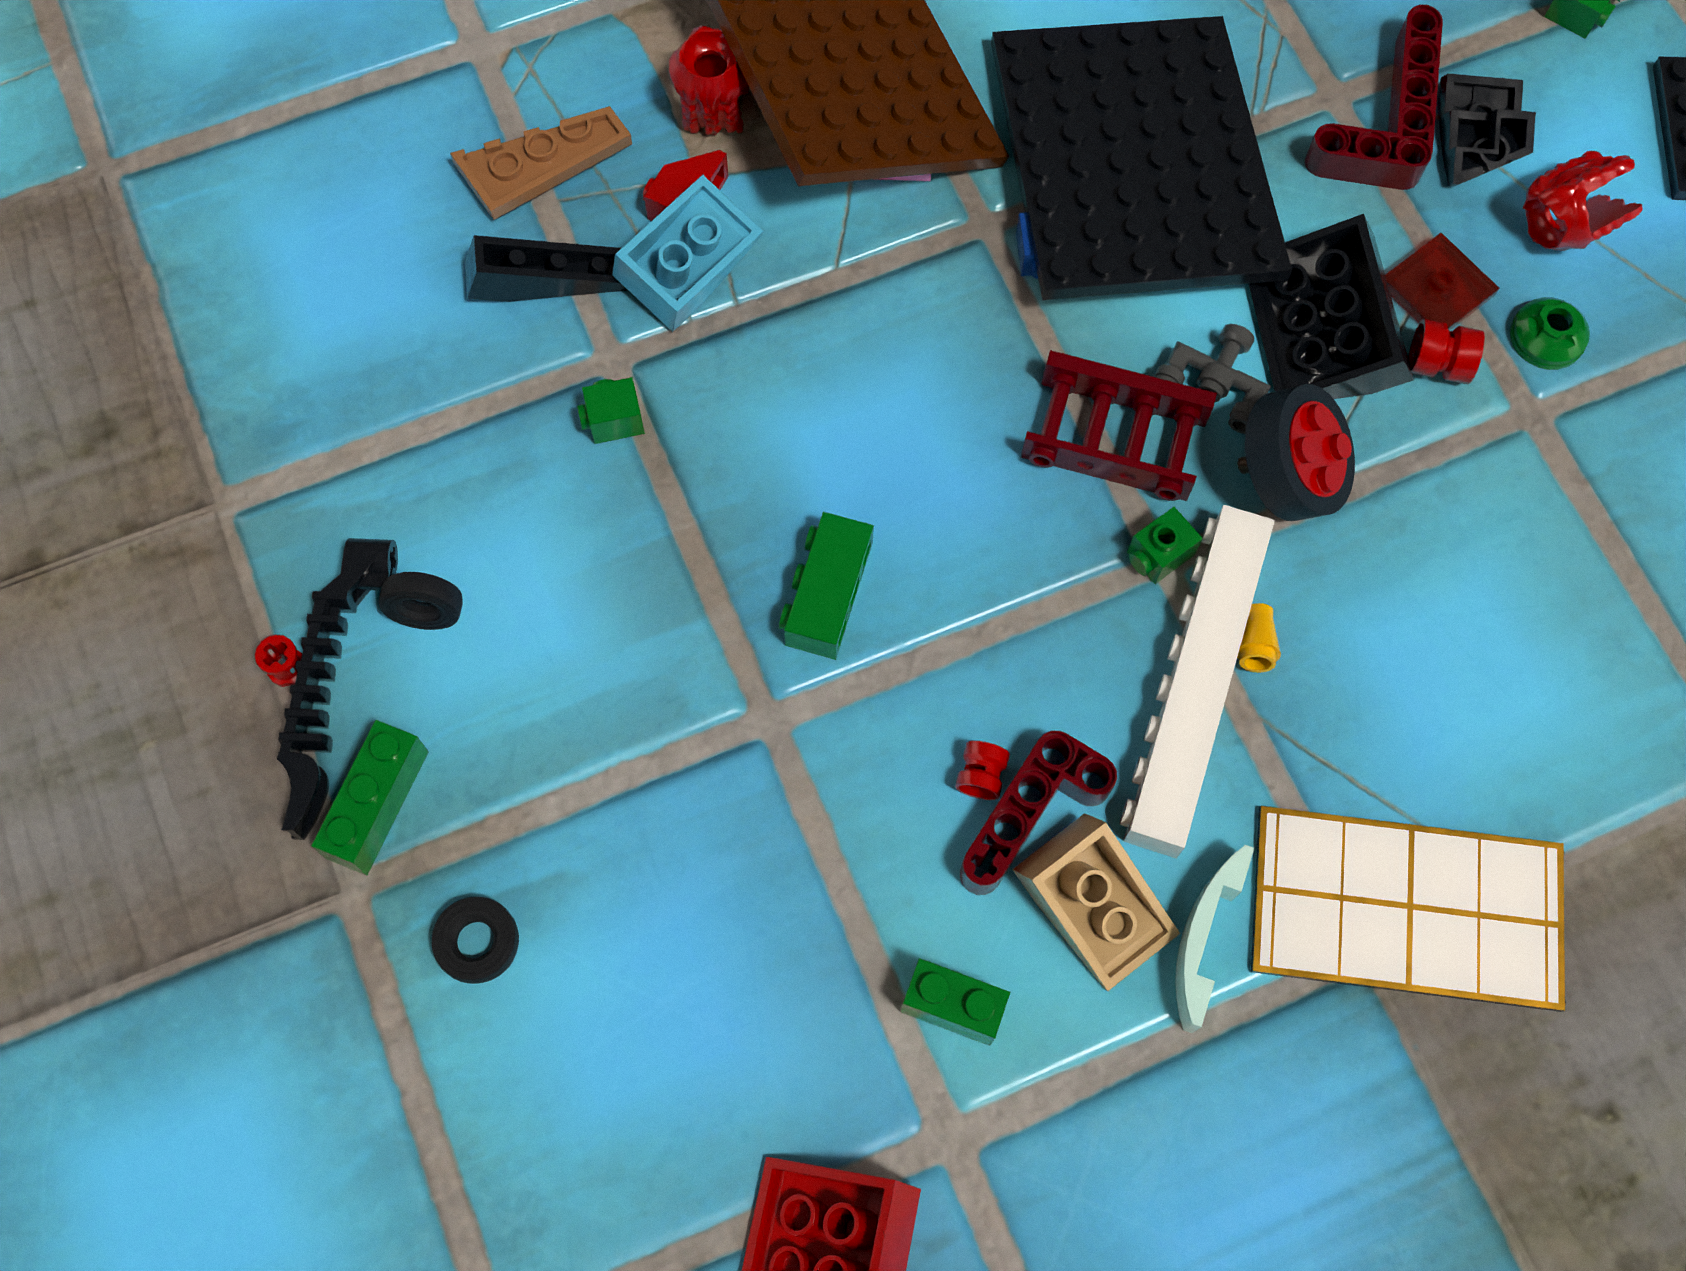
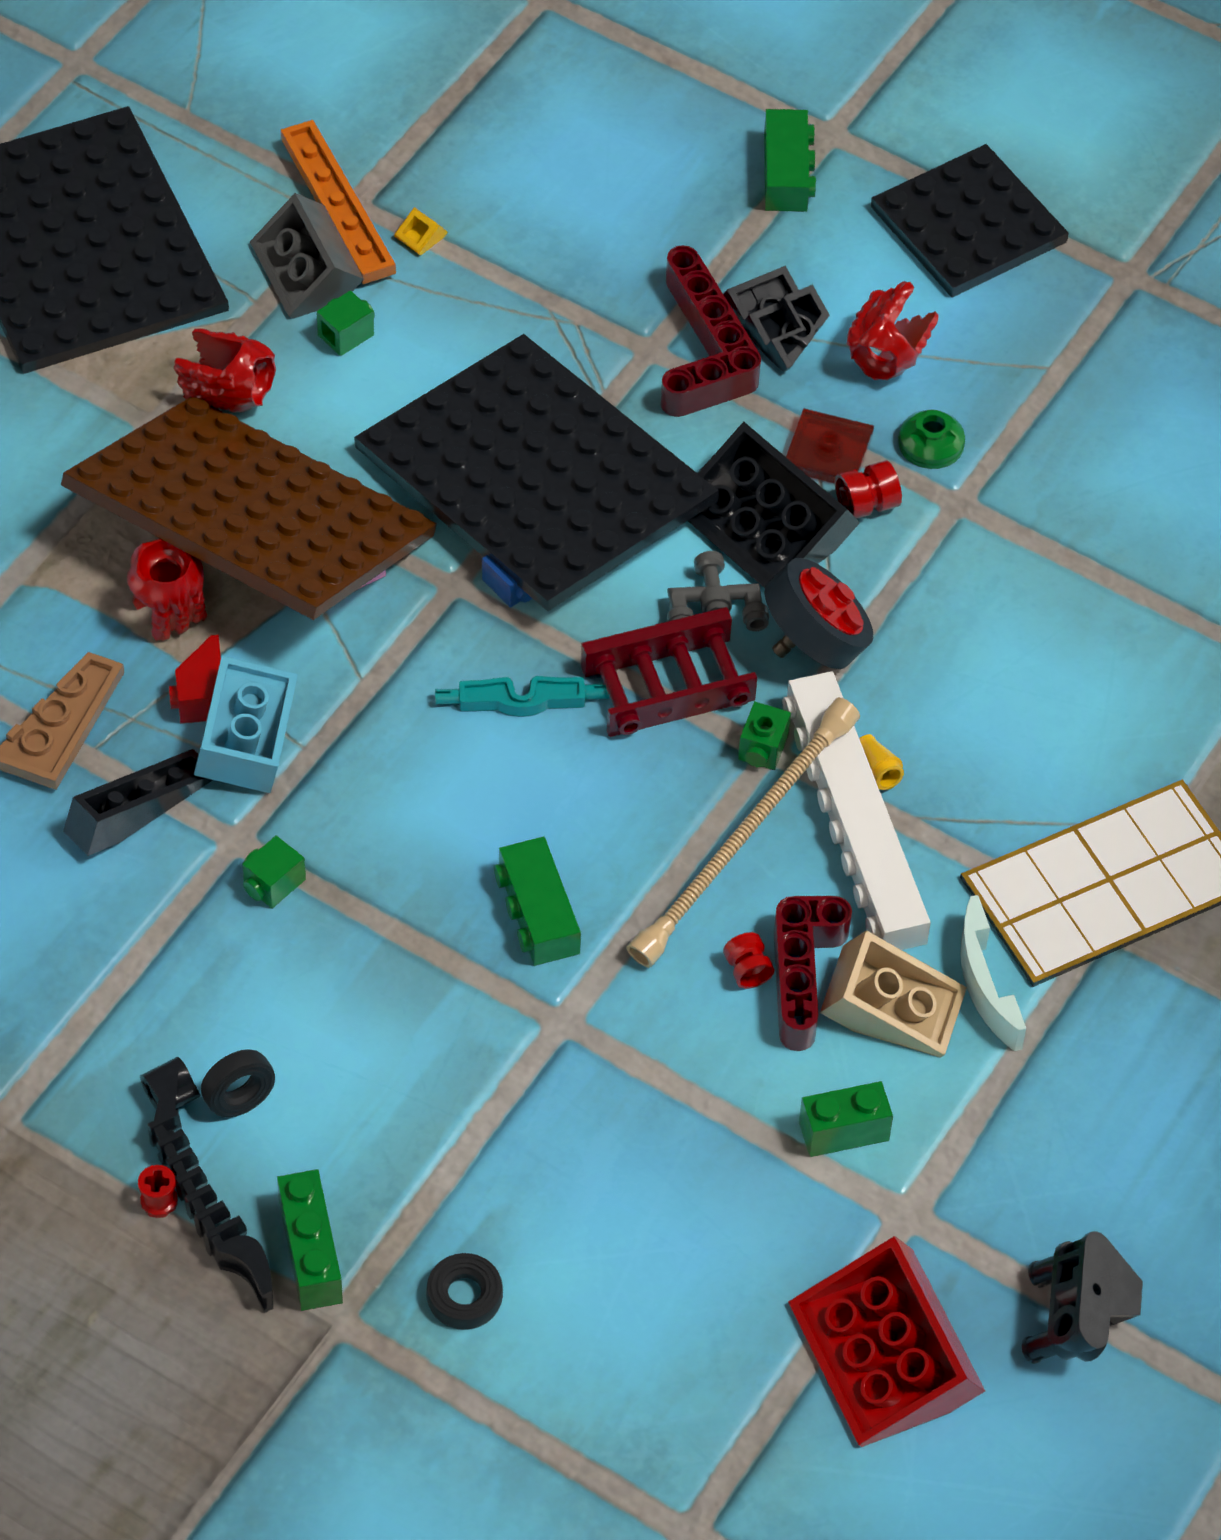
camera: 35 degrees left, 15 degrees down
(948, 355) = (501, 695): none -> teal piece
(1235, 578) = (651, 941): none -> tan hose

